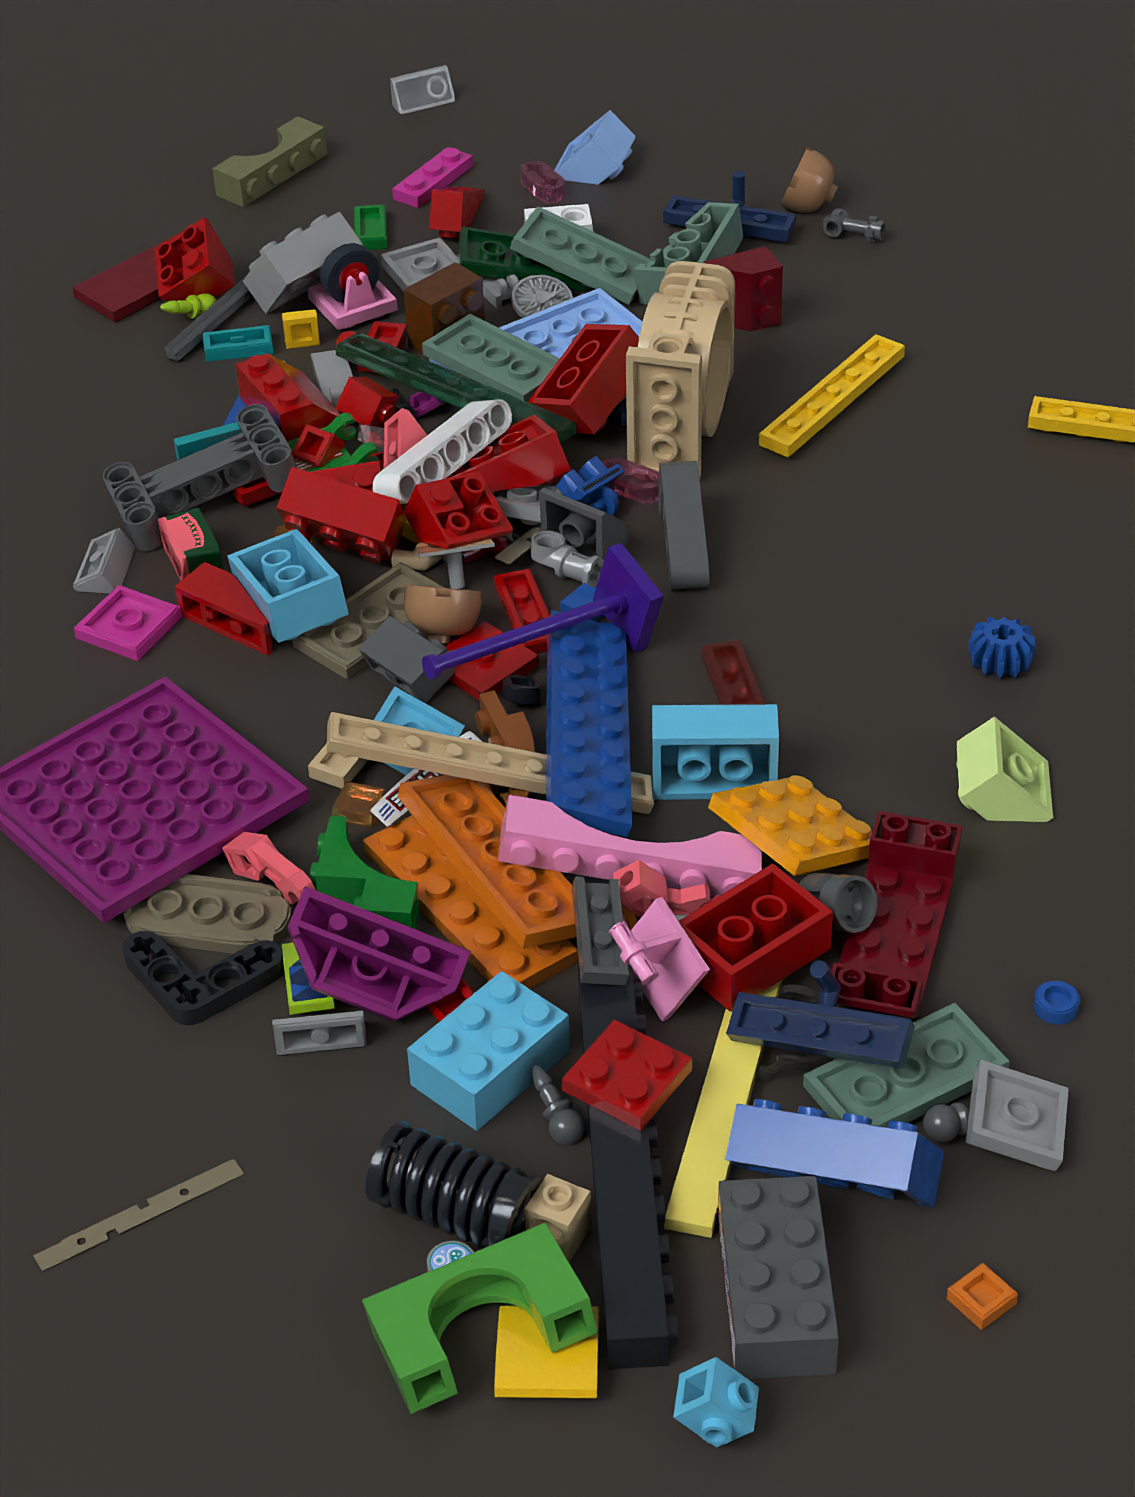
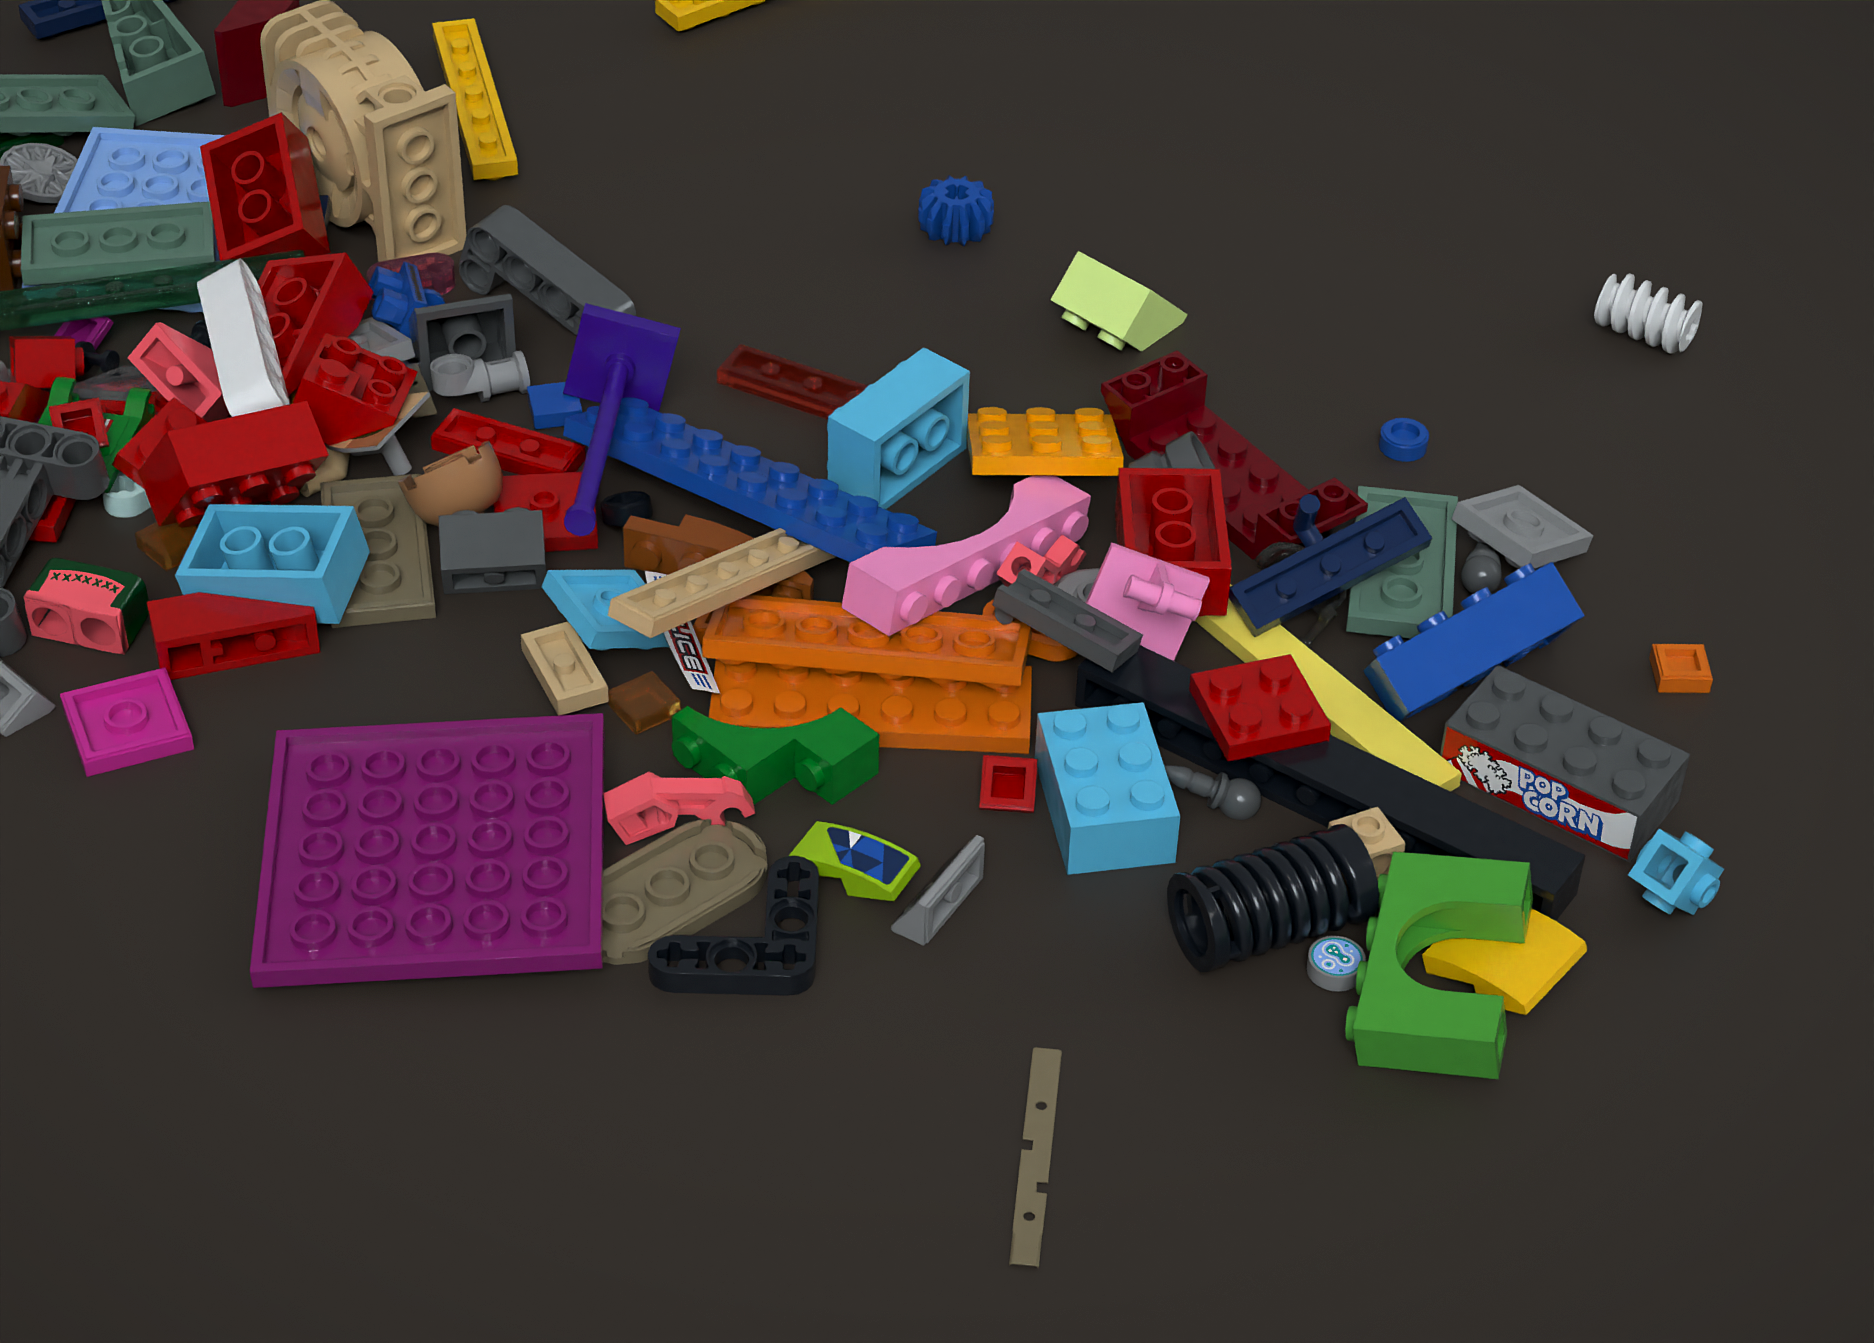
camera: 55 degrees left, 0 degrees up
(372, 958) = (918, 788): magenta wedge -> none

